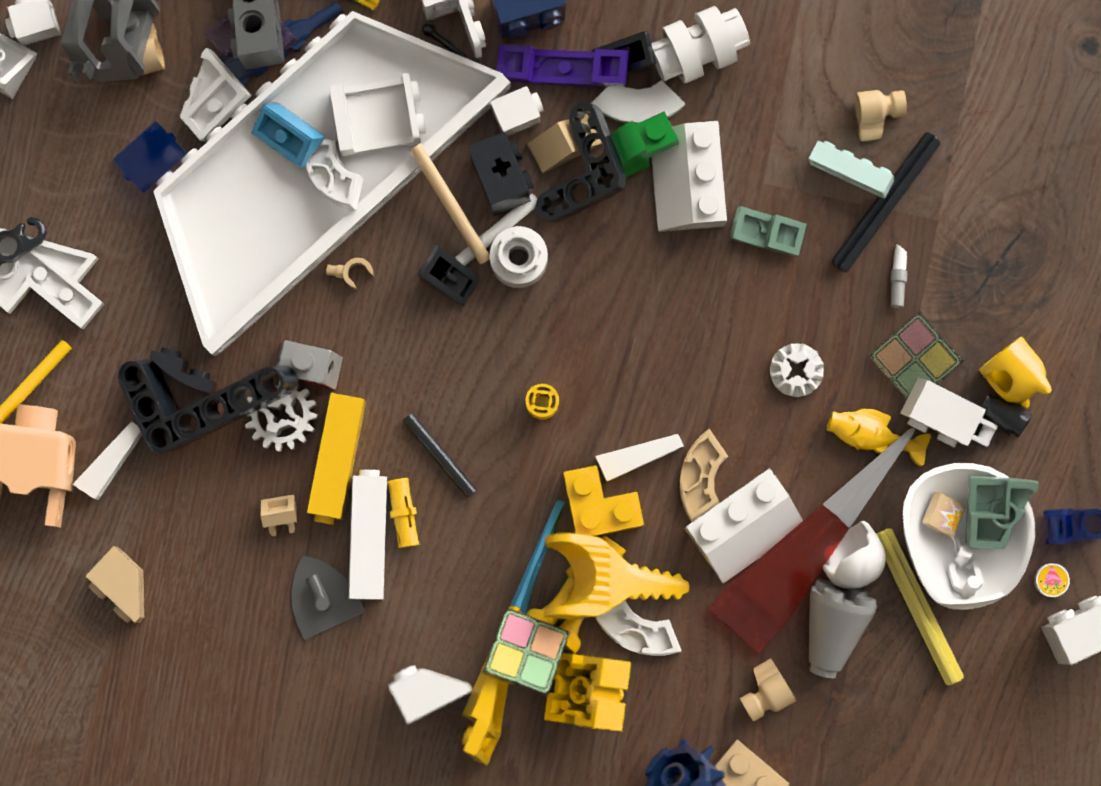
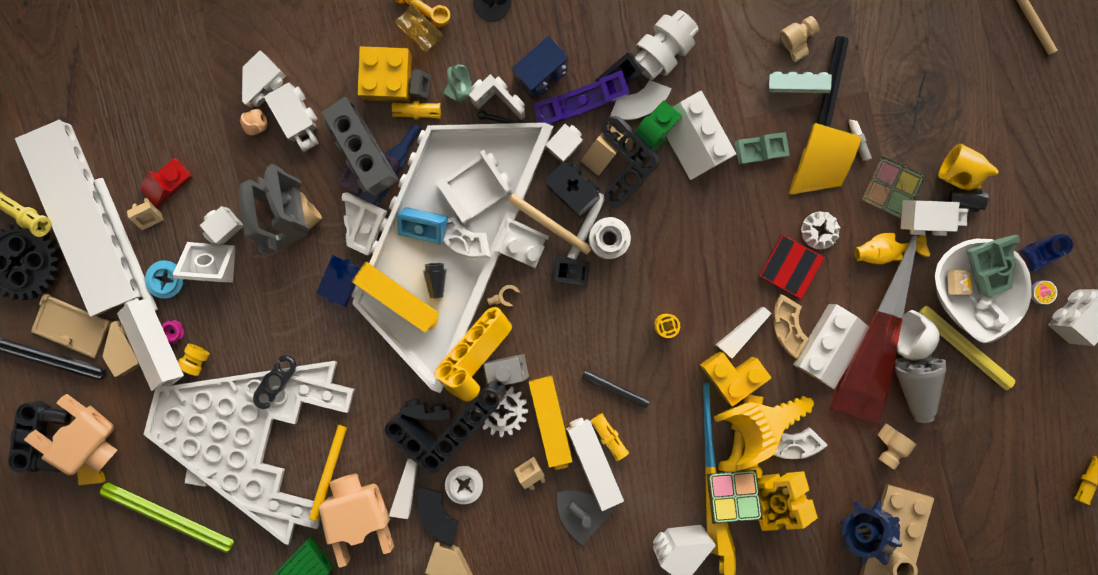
camera: 20 degrees left, 5 degrees up
(131, 515) = (434, 515): none -> black tile
(172, 484) = (464, 496): none -> white gear
(213, 208) = (396, 297): none -> yellow brick
(272, 209) = (435, 279): none -> black cone
(277, 319) = (471, 352): none -> yellow beam
(403, 212) = (521, 243): none -> white plate
(738, 400) = (791, 266): none -> tile
(839, 281) = (825, 159): none -> yellow slope

